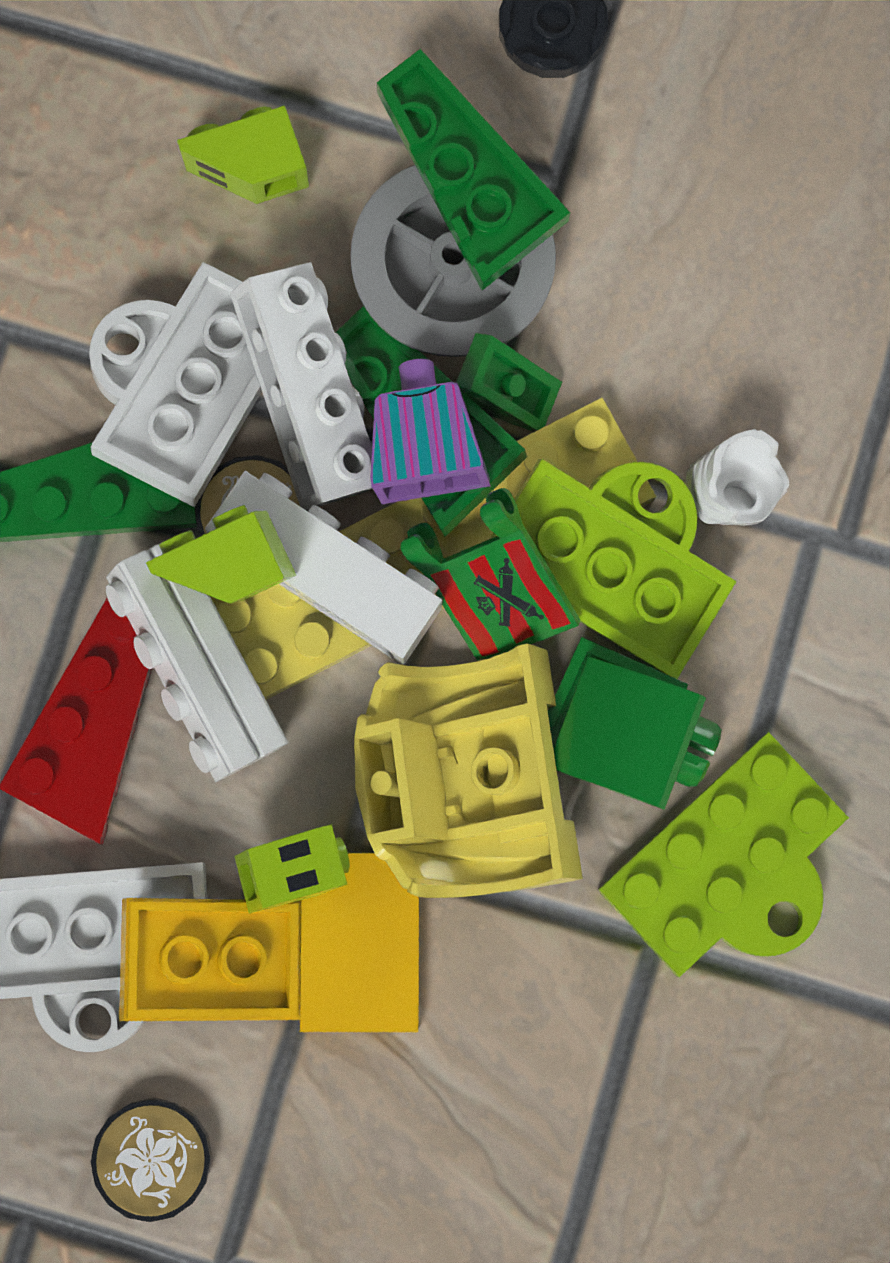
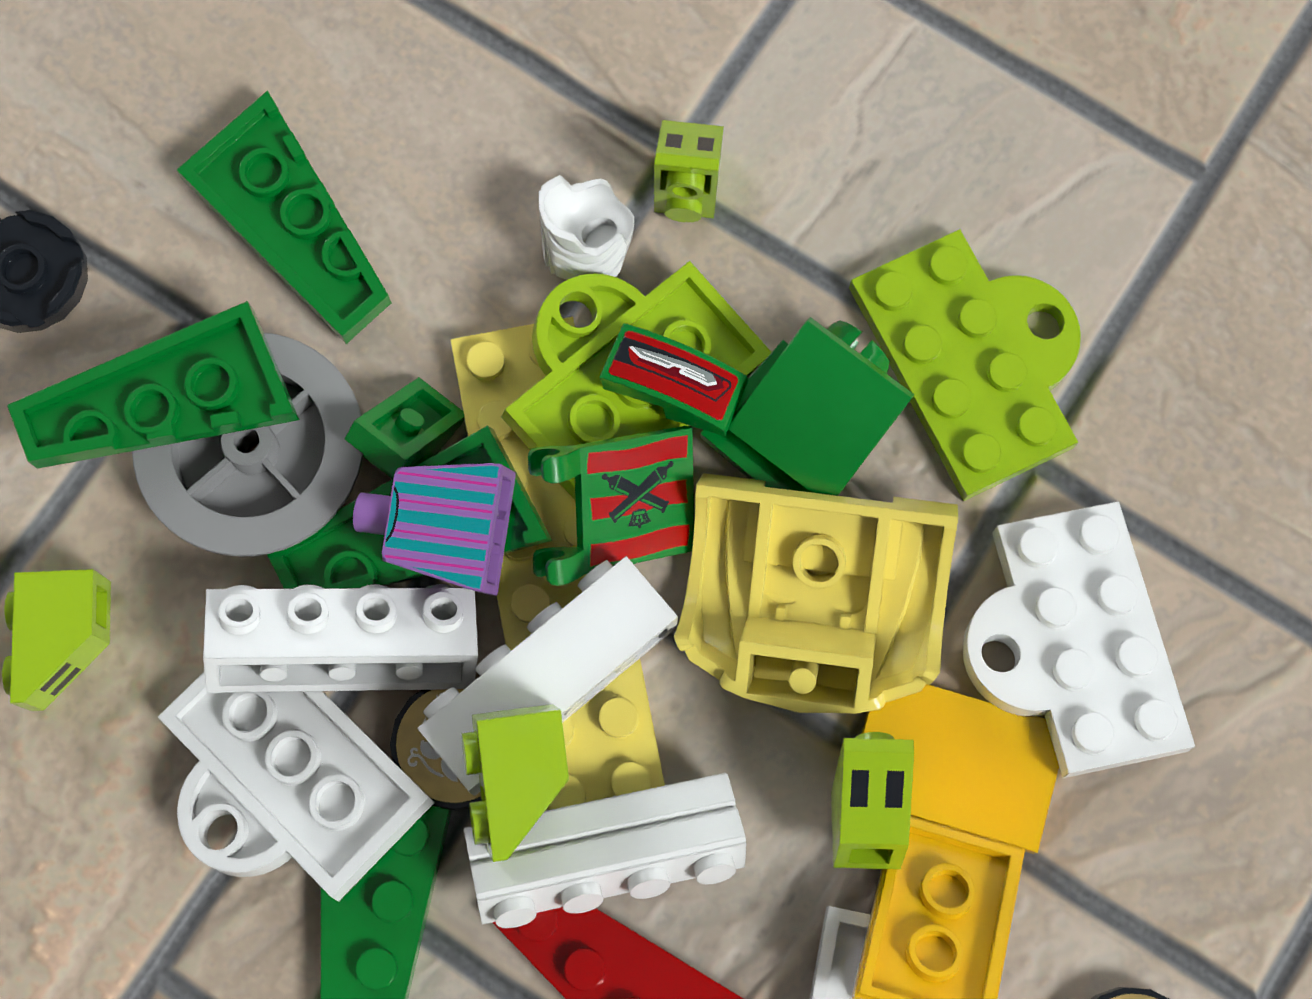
camera: 70 degrees left, 5 degrees down
(496, 1023) = (1079, 642): none -> white plate
(616, 596) = (674, 376): none -> slope
(676, 214) = (280, 208): none -> green wing
(823, 554) = (687, 170): none -> lime slope

